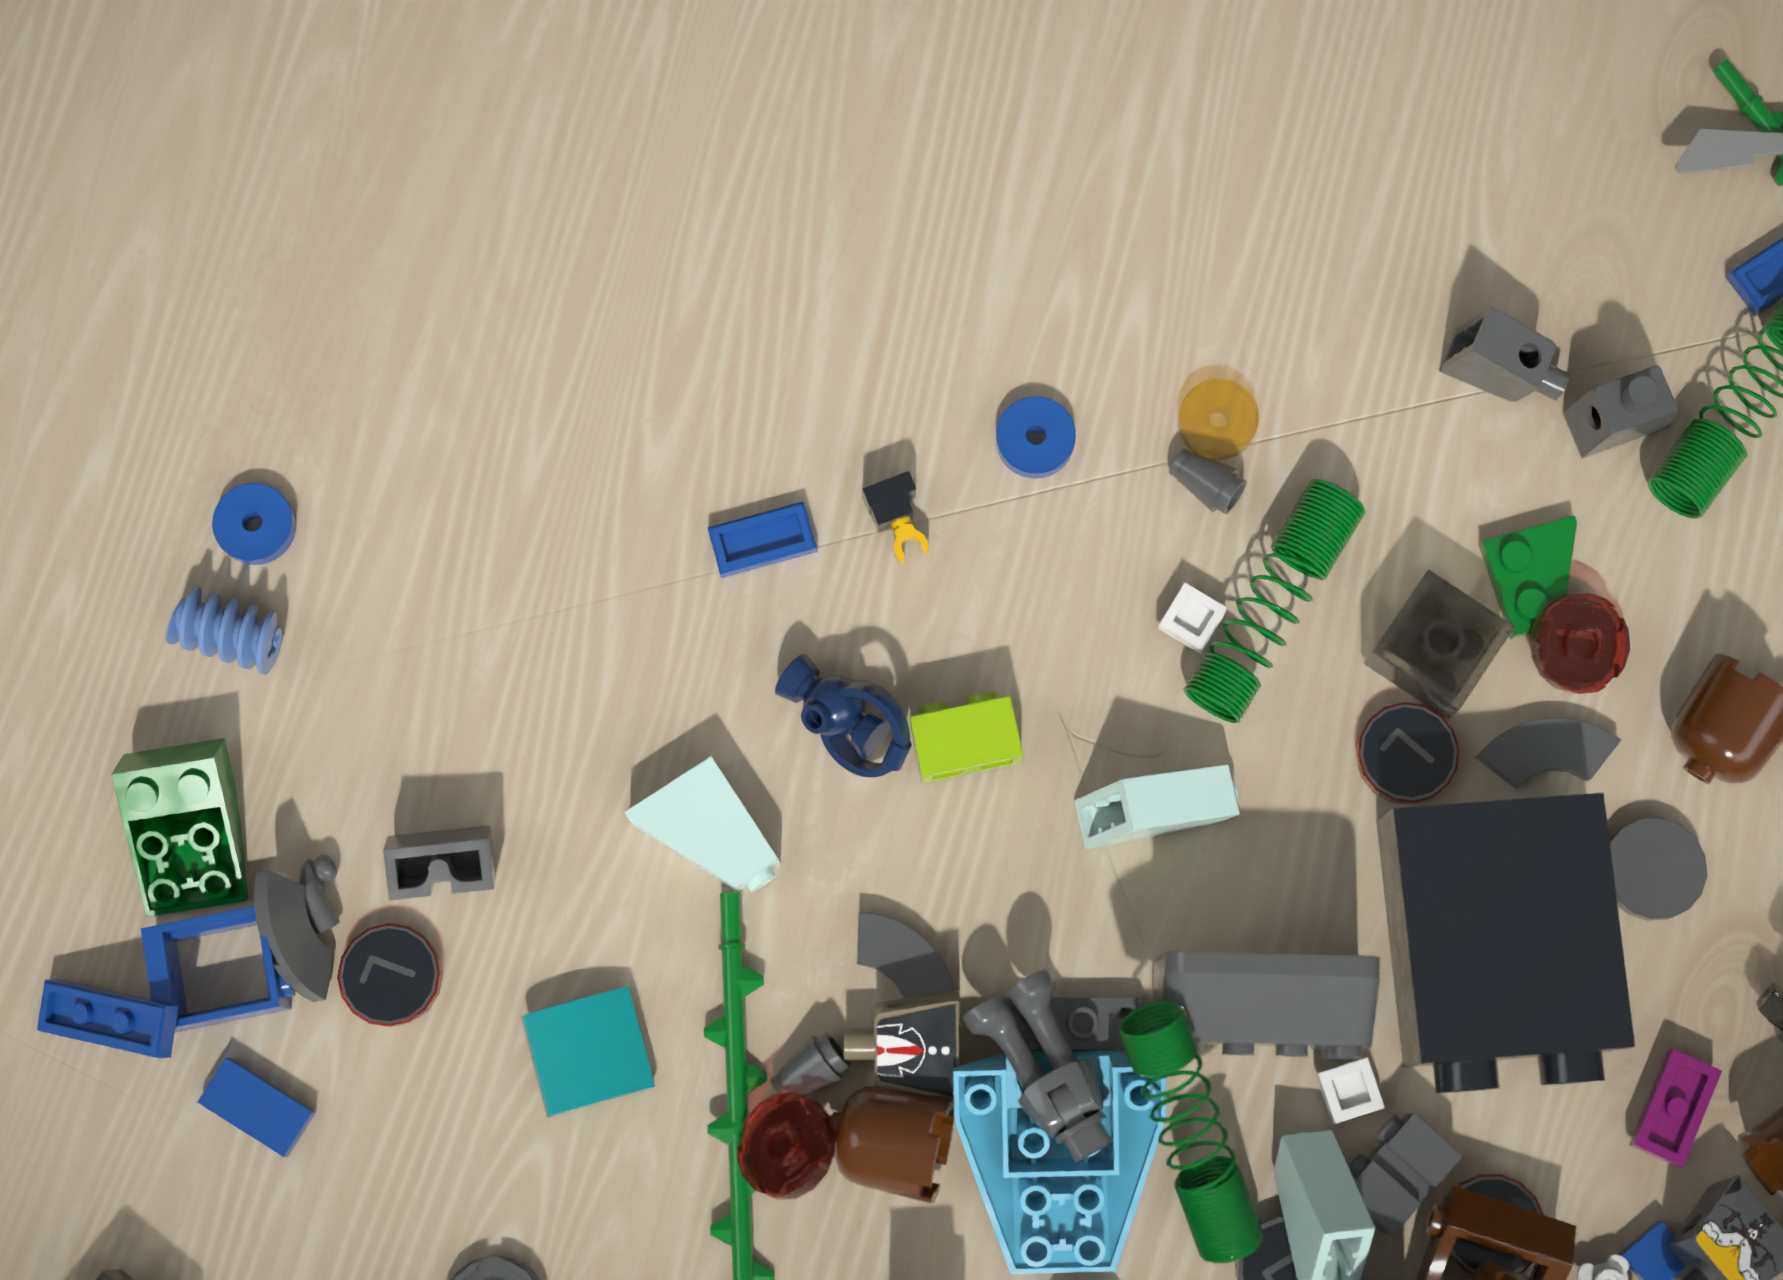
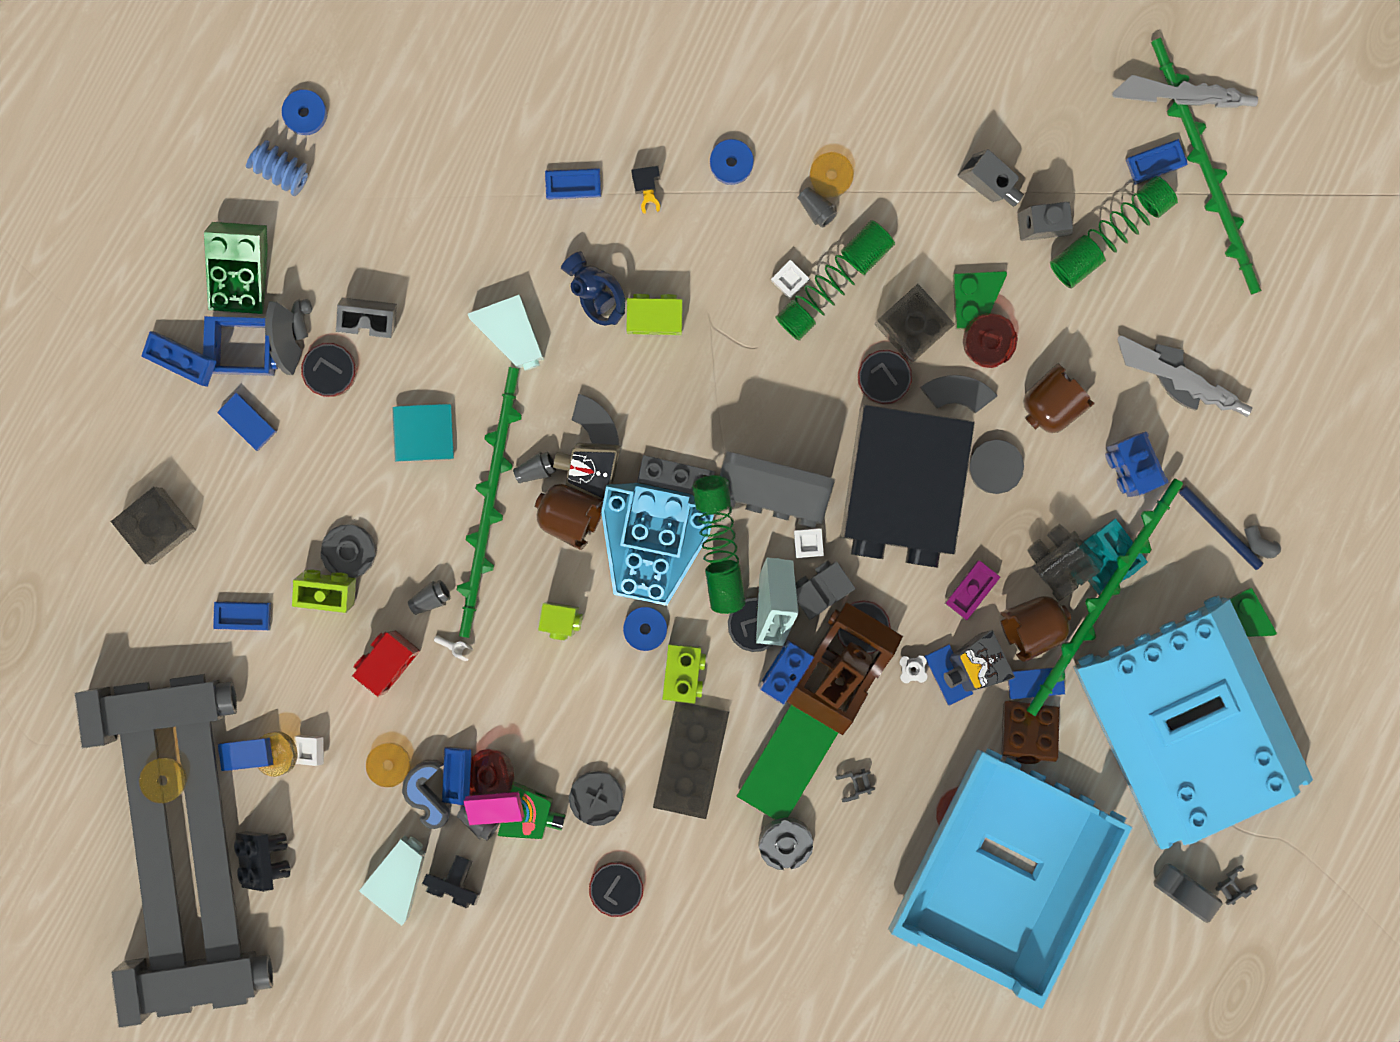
camera: 10 degrees right, 10 degrees up
(786, 1146) = (513, 504): clear red tile -> none
(1066, 1098) = (660, 513): dark grey piece -> none
(1156, 805) = (746, 374): light aqua slope -> none

